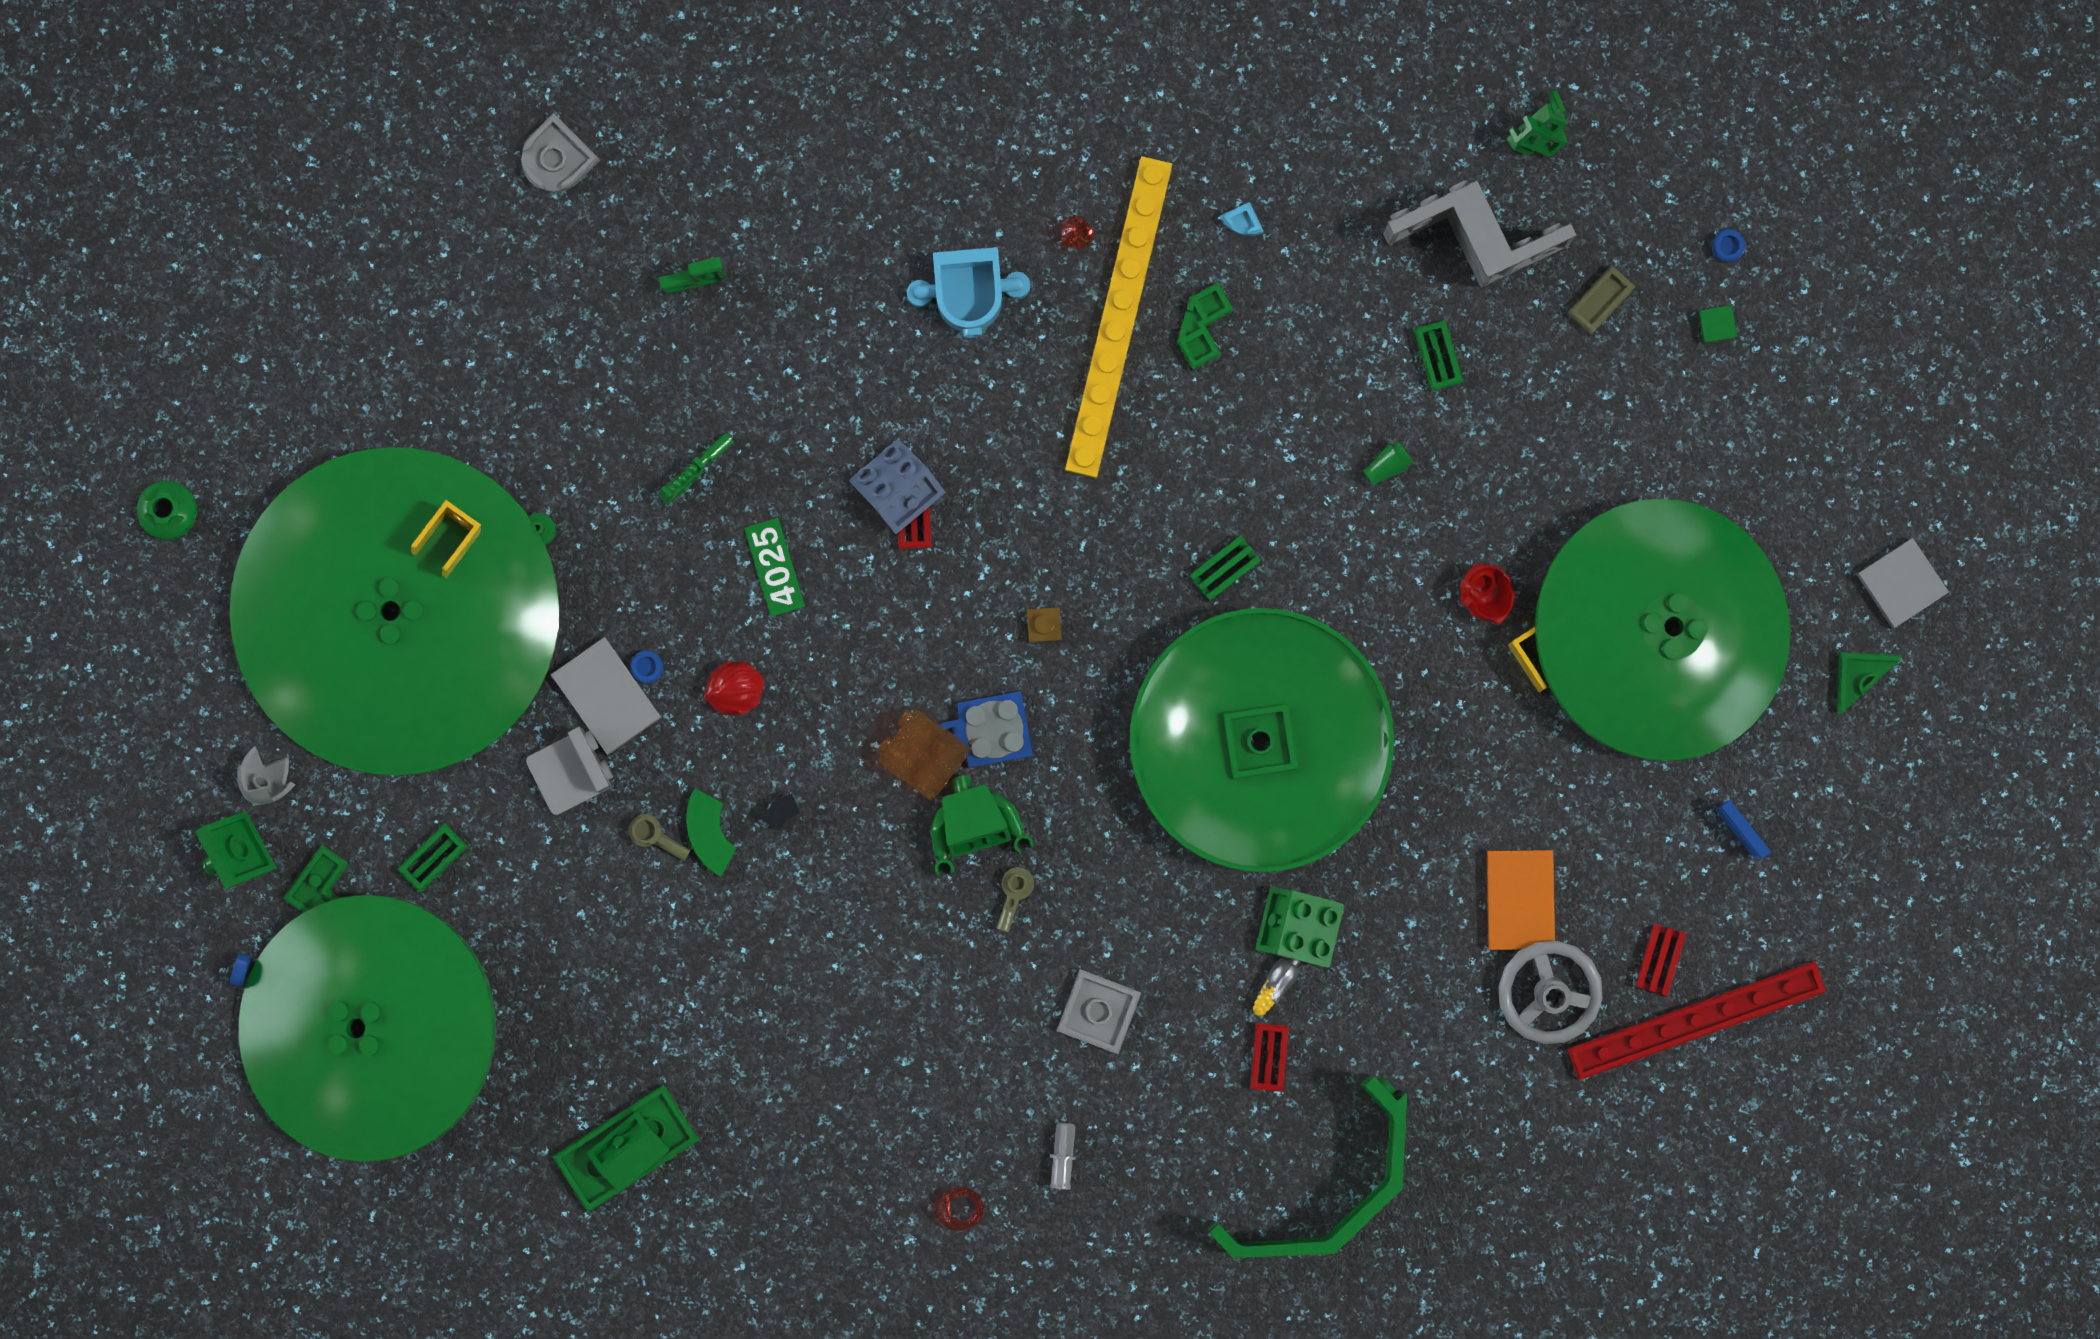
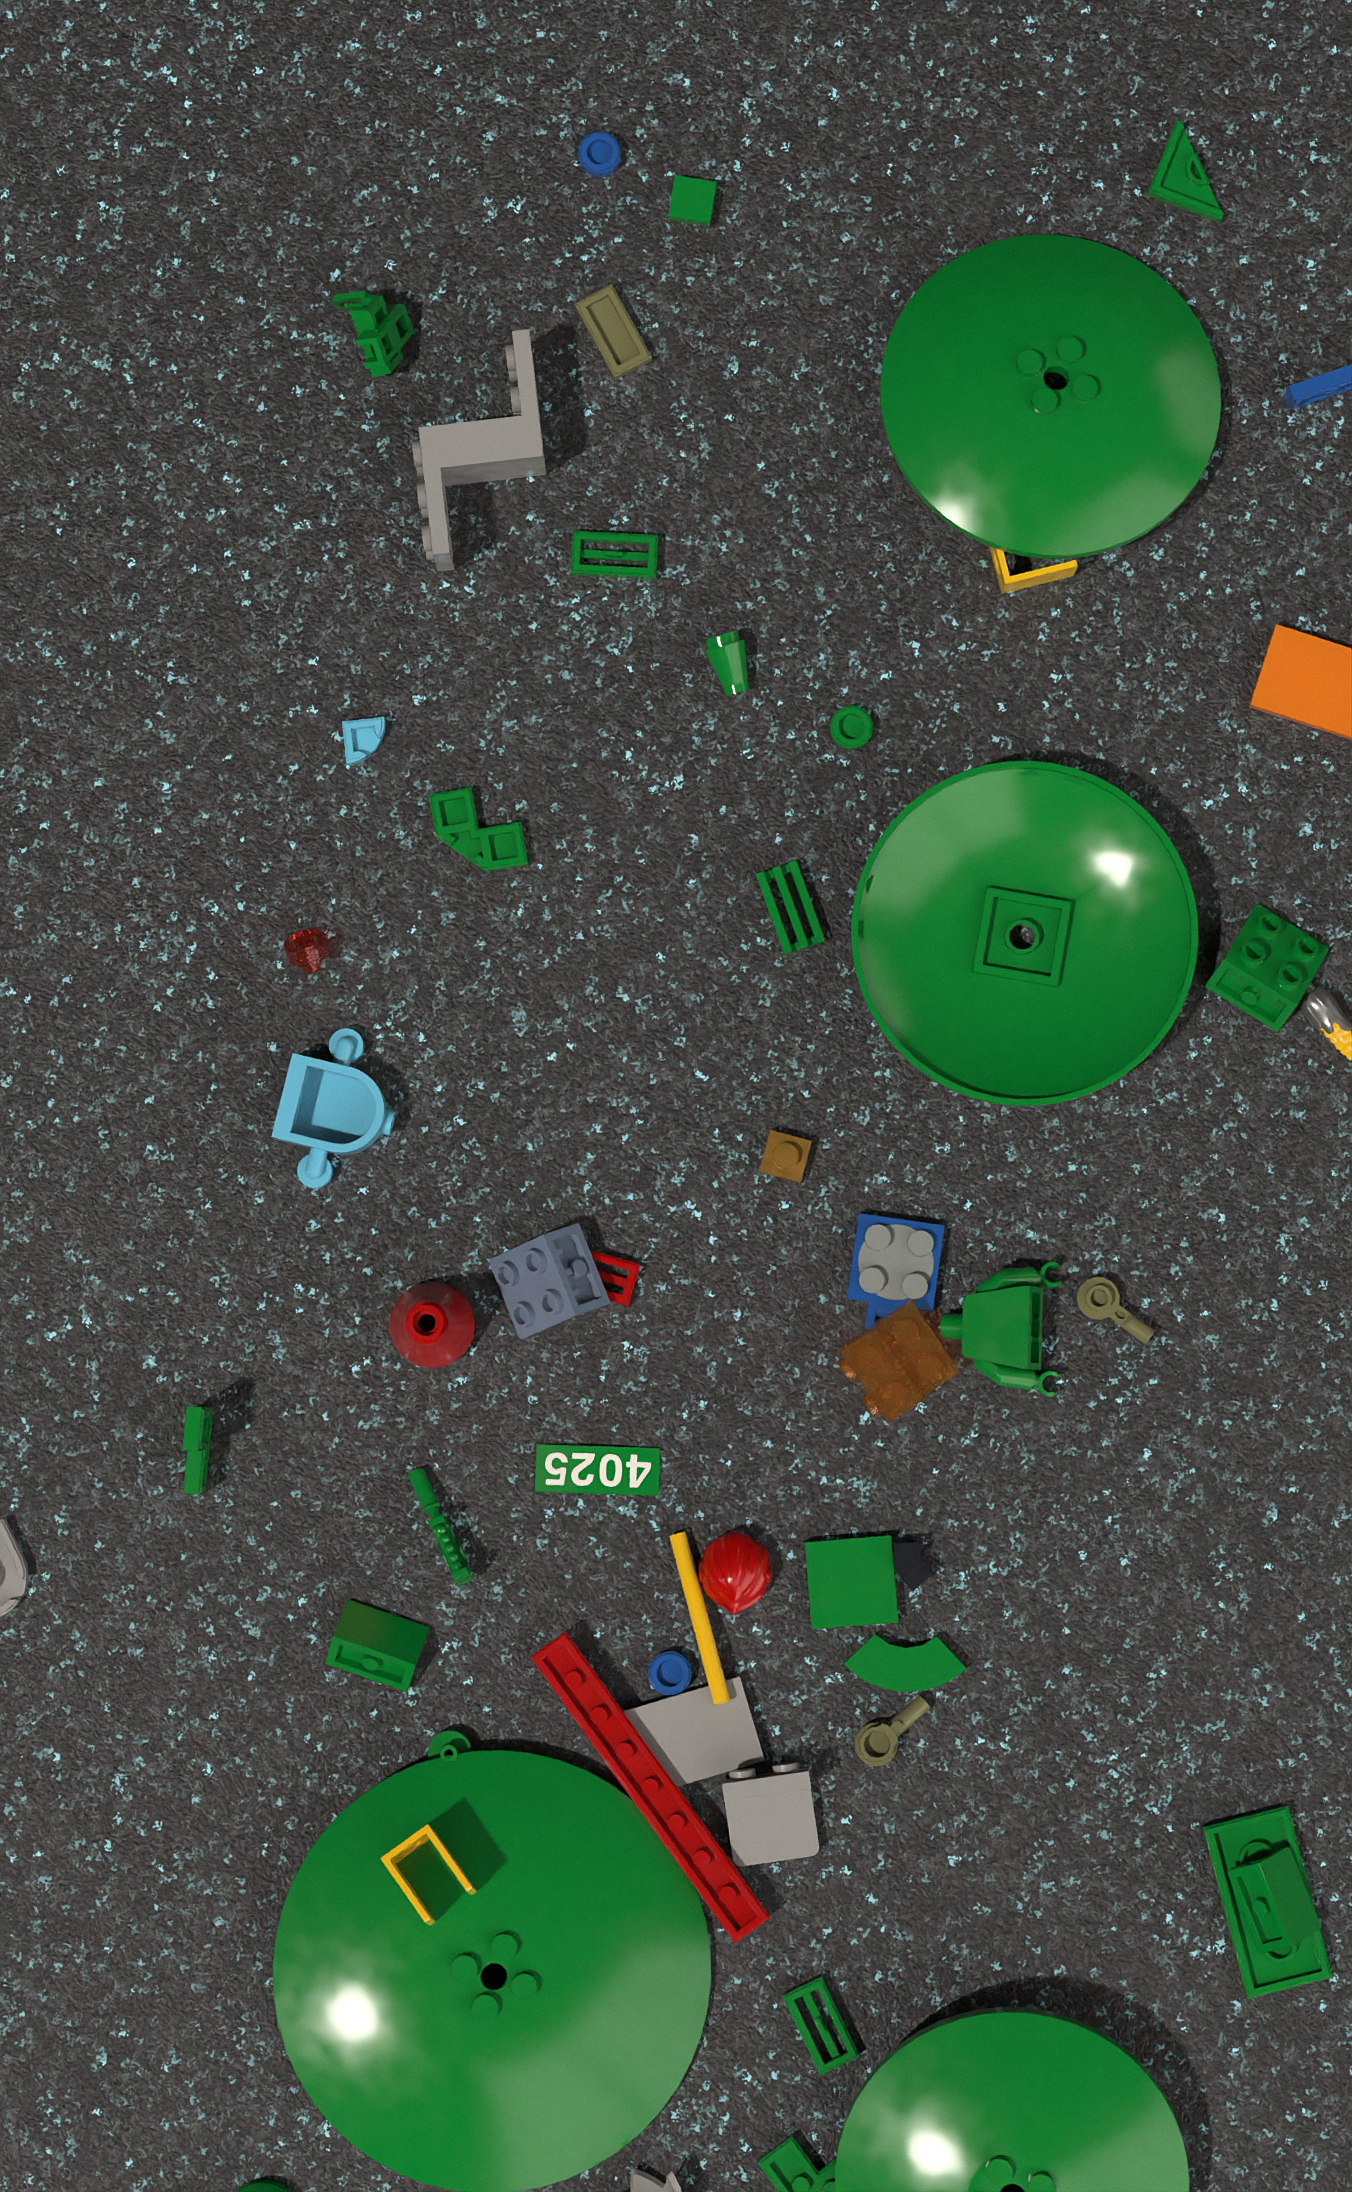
camera: 65 degrees left, 0 degrees up
(561, 679) = (650, 1787): none -> red tile
(597, 452) = (377, 1645): none -> green panel
(692, 674) = (699, 1618): none -> yellow bar
(754, 774) = (851, 1582): none -> green tile
(839, 426) = (452, 1328): none -> red cone
(1098, 1011) = (1290, 1251): light grey tile -> none
(1118, 317) = (430, 933): yellow plate -> none
(1371, 568) = (851, 728): none -> green tile
(1487, 593) = (932, 594): red hair -> none
(1902, 583) = (1088, 87): light grey tile -> none

